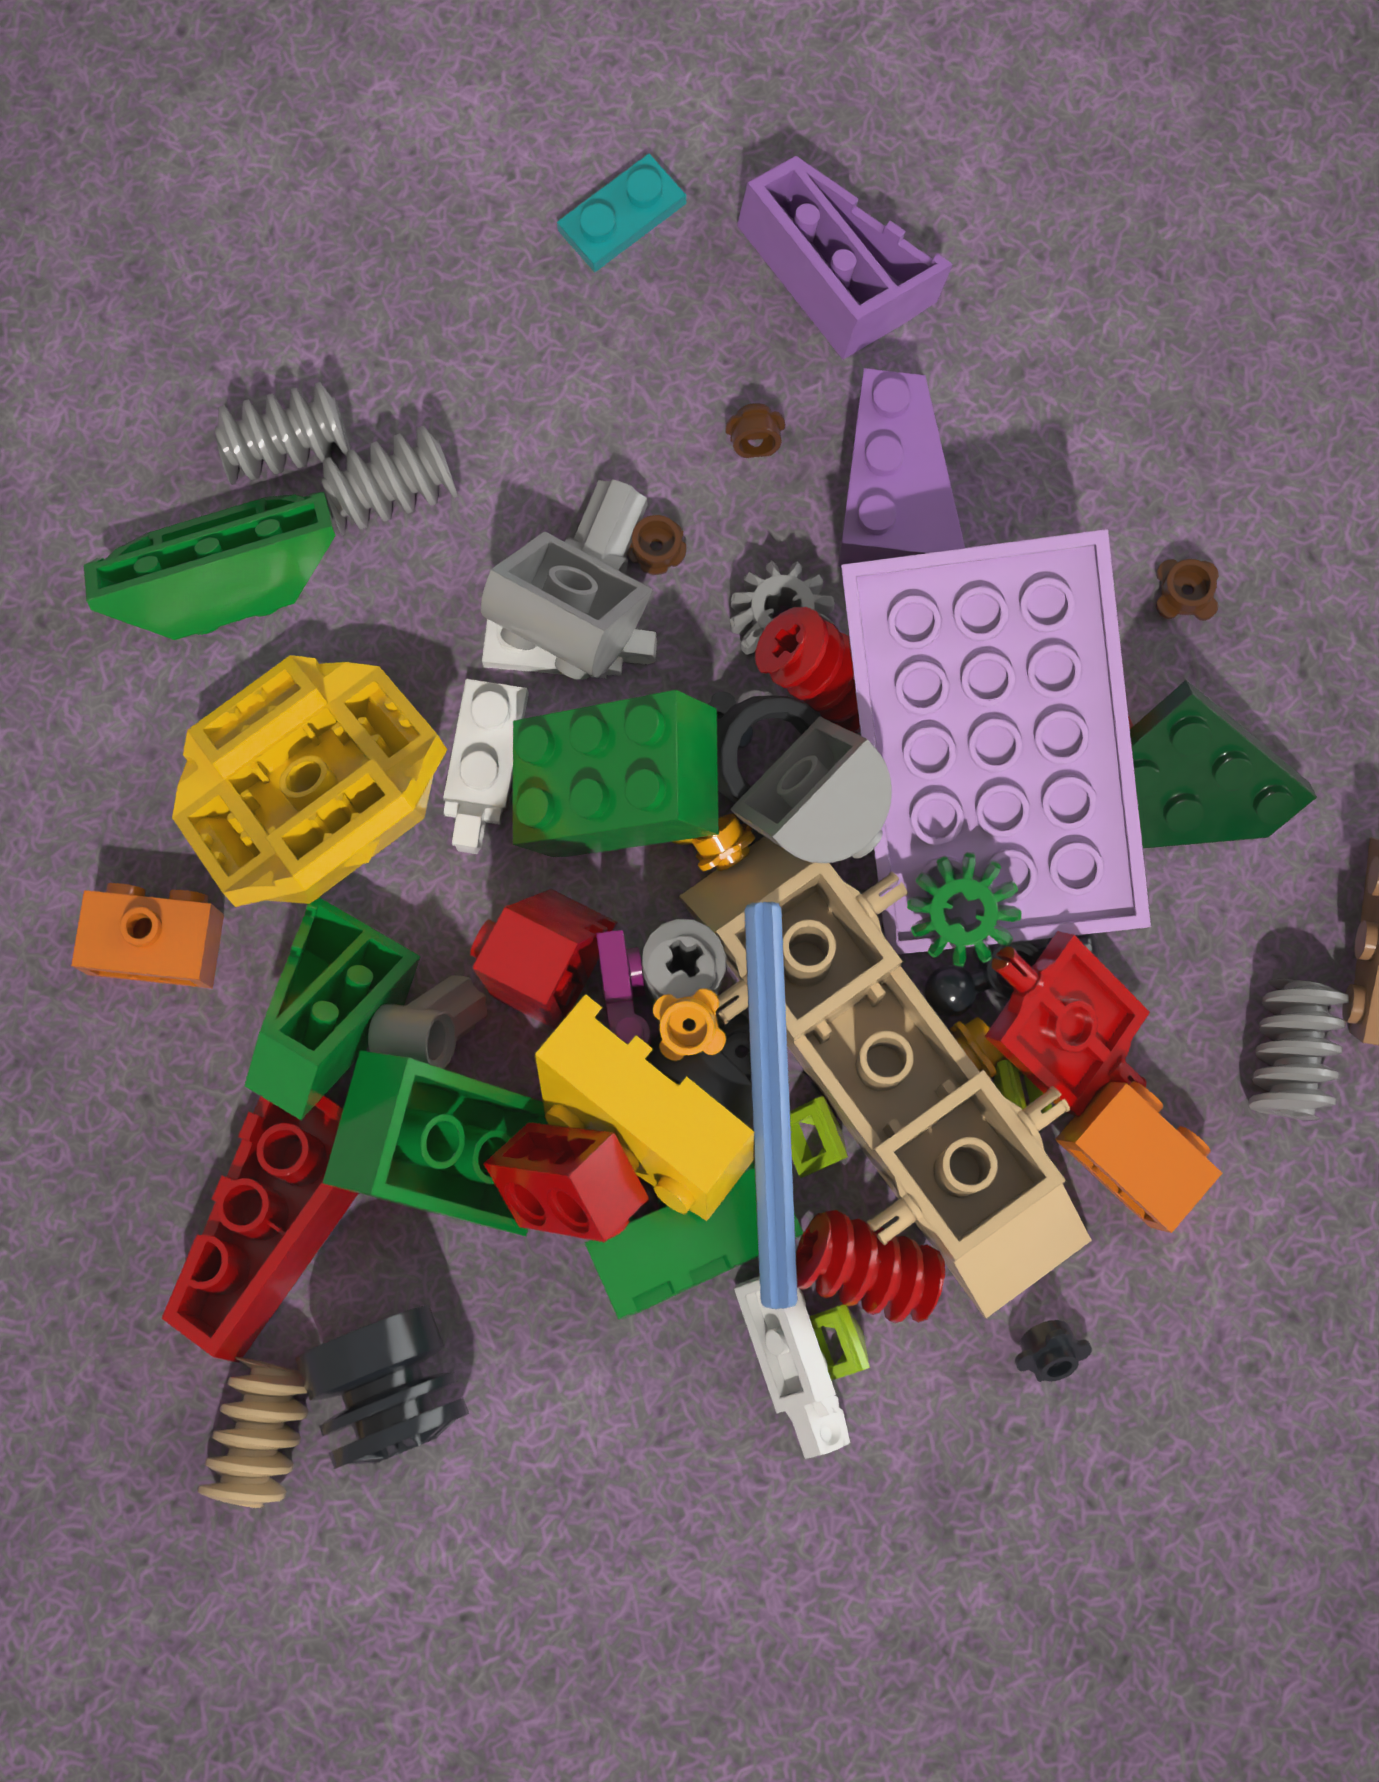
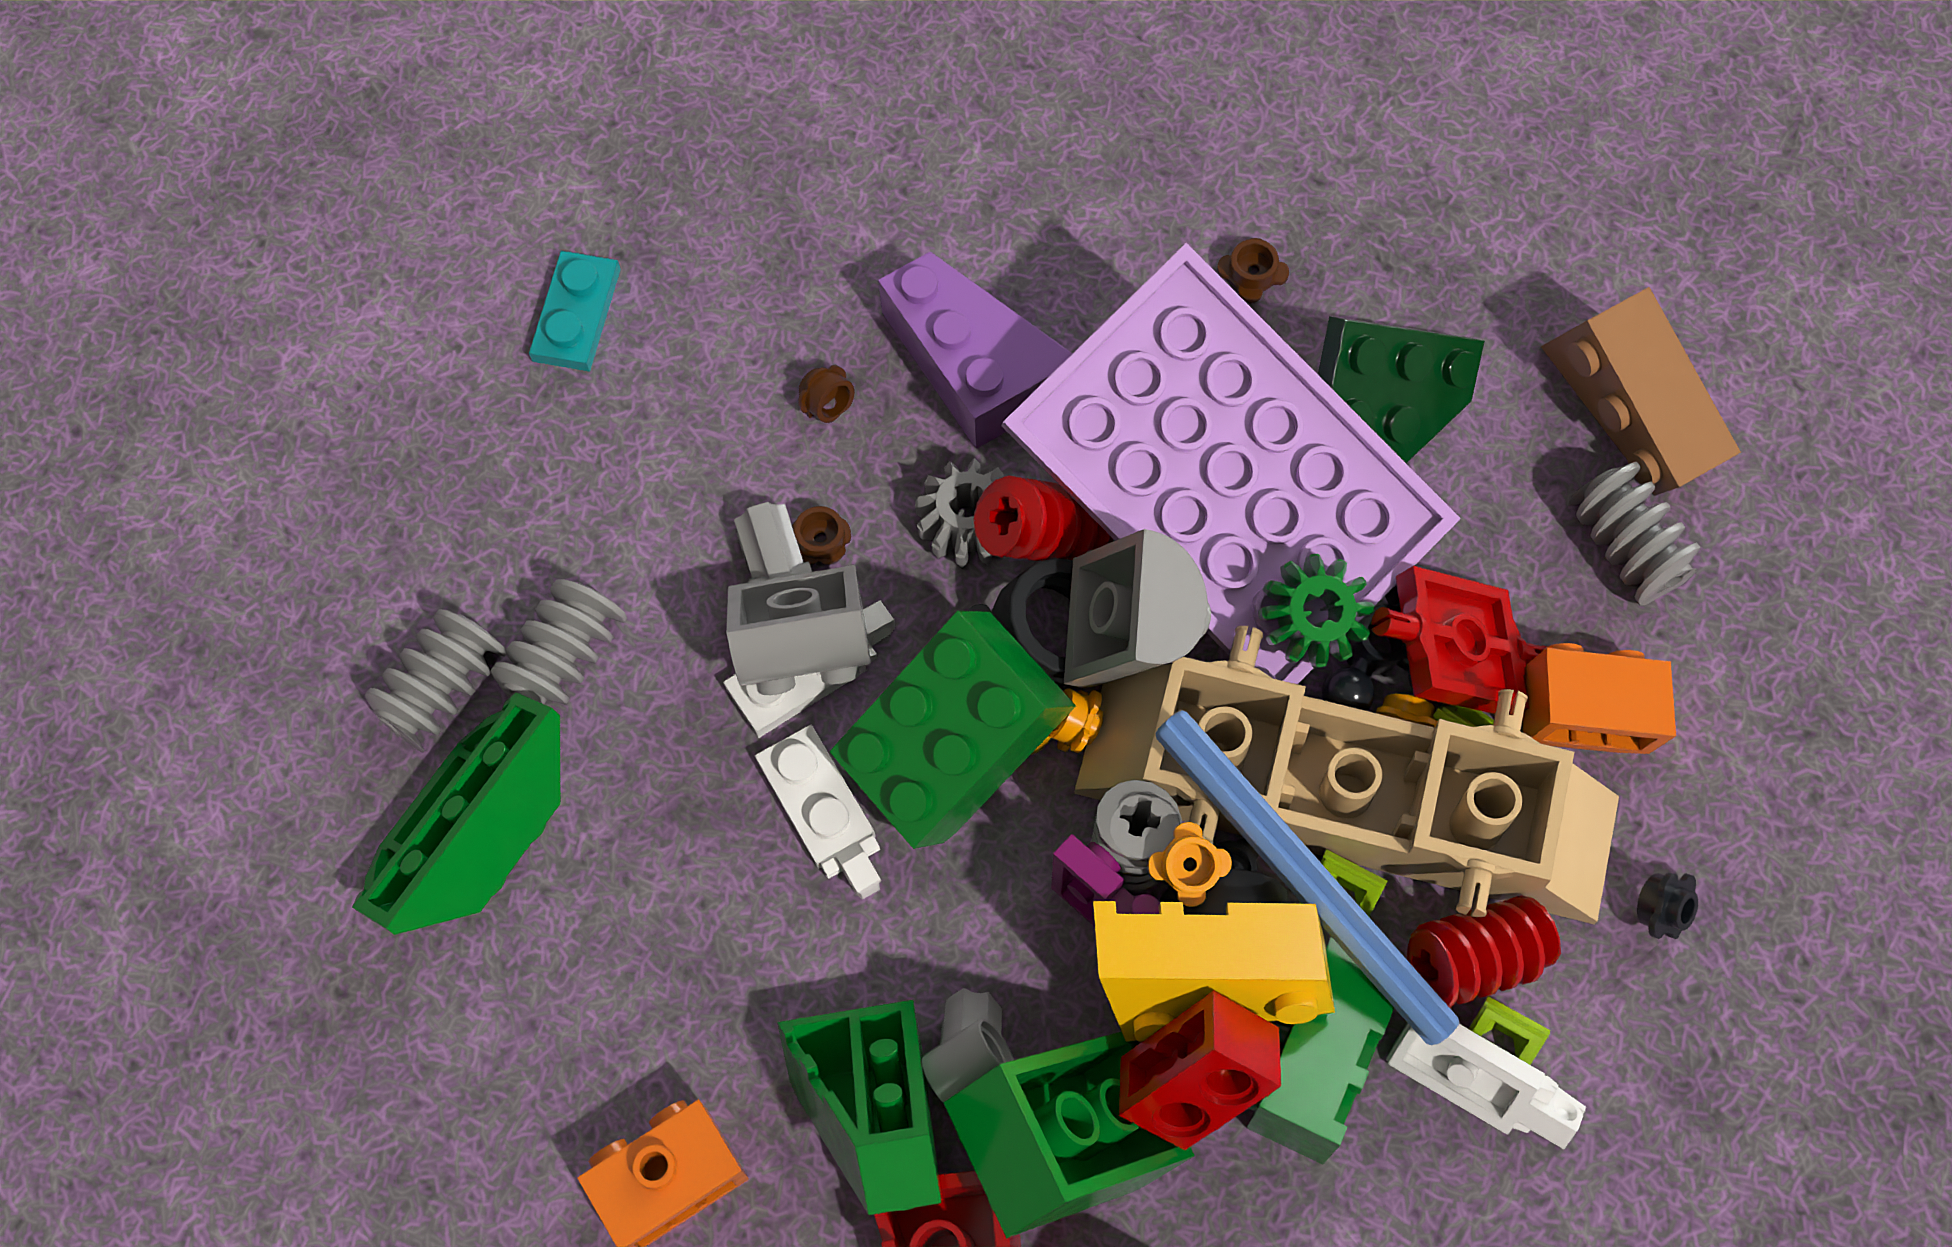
camera: 40 degrees left, 10 degrees down
(303, 779) = (695, 931): yellow piece -> none
(540, 954) = (1019, 922): red wedge -> none
(837, 259) = (779, 221): medium lavender wedge -> none

